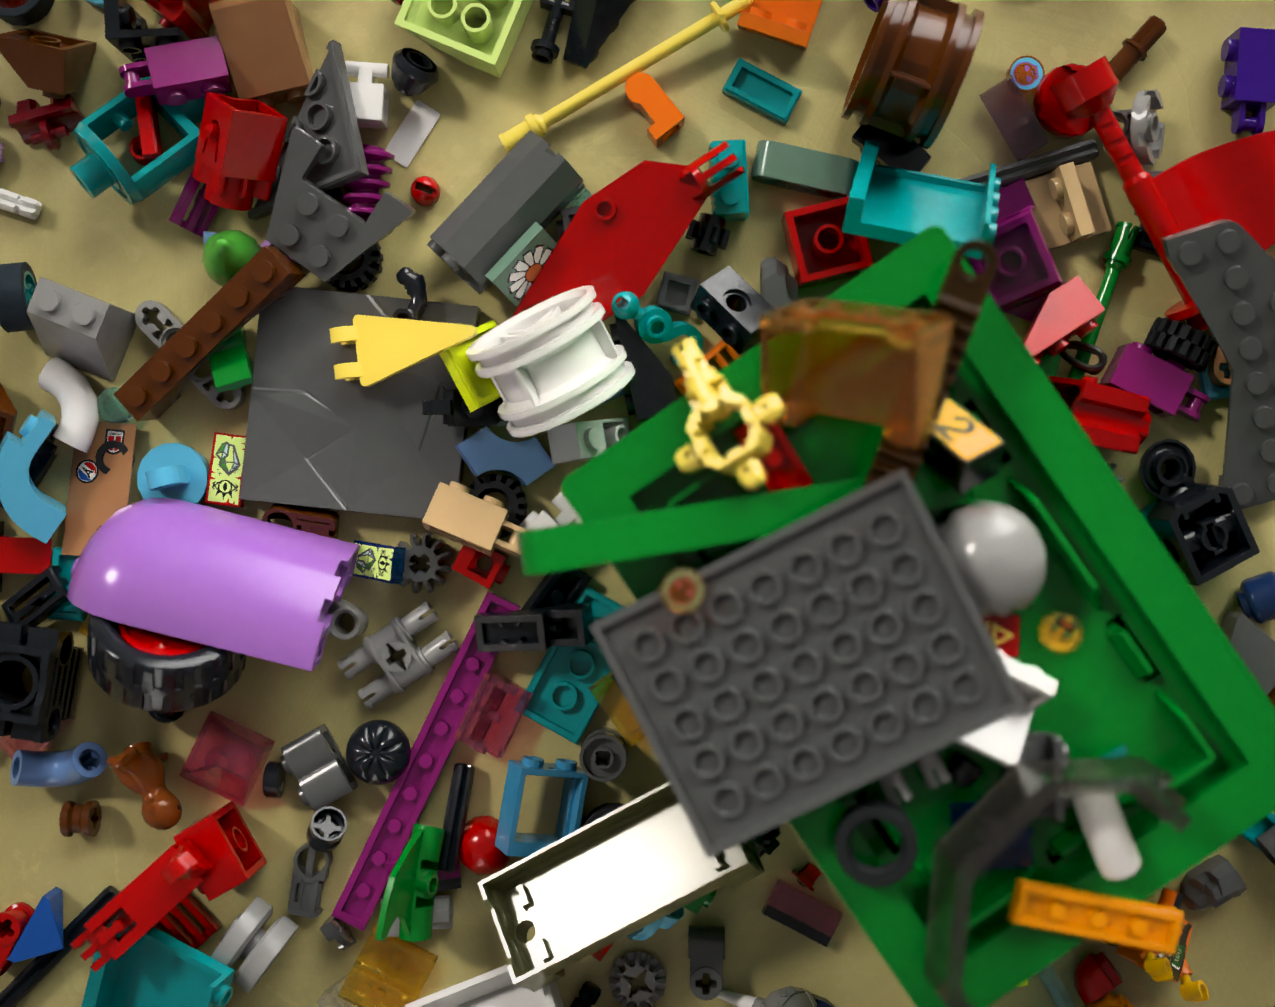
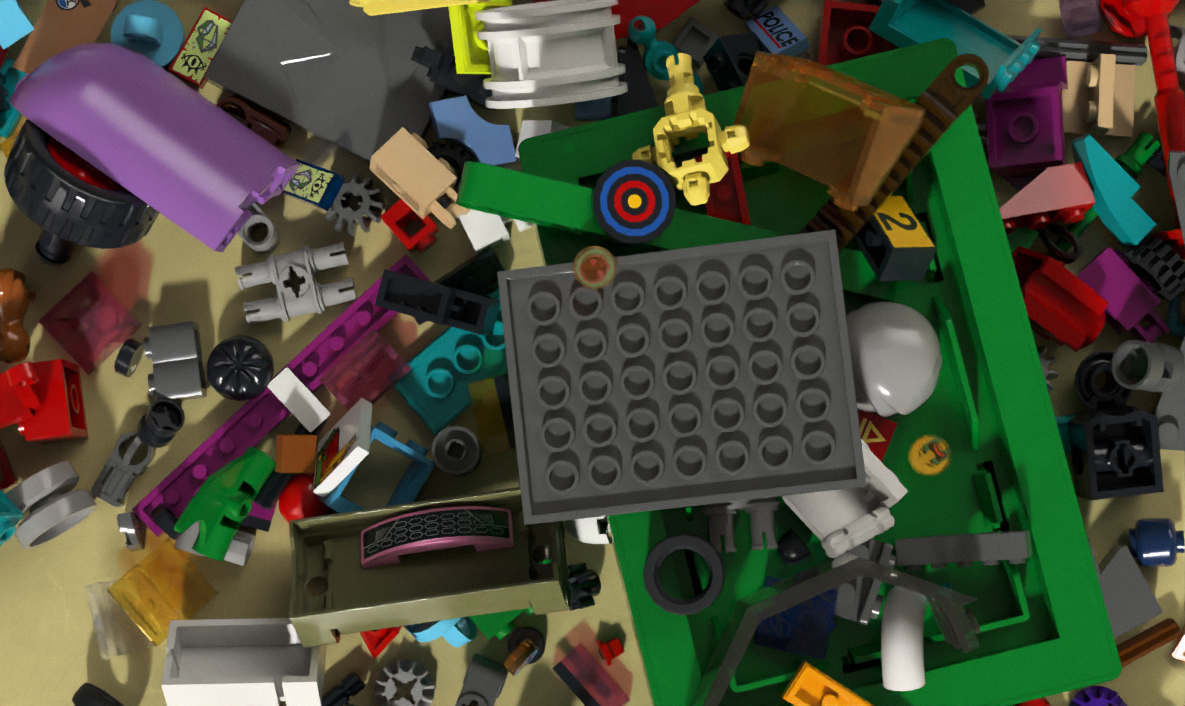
camera: 20 degrees right, 5 degrees down
(365, 917) = (166, 520): none -> black tile
(442, 761) = (298, 399): none -> white sticker
(459, 813) = (295, 453): none -> dark orange tile
(500, 794) = (343, 448): none -> white tile
(616, 844) = (434, 530): none -> slope
(695, 510) = (633, 202): none -> tile
(731, 902) = (524, 633): none -> black tile
(732, 917) = (521, 656): none -> clear orange tile
(751, 260) = (777, 33): none -> medium blue tile
(1024, 739) = (857, 532): none -> white axle
(1115, 292) = (1112, 192): none -> teal slope
(1130, 714) = (964, 549): none -> dark grey piece
(1206, 443) = (1147, 366): none -> dark grey wheel

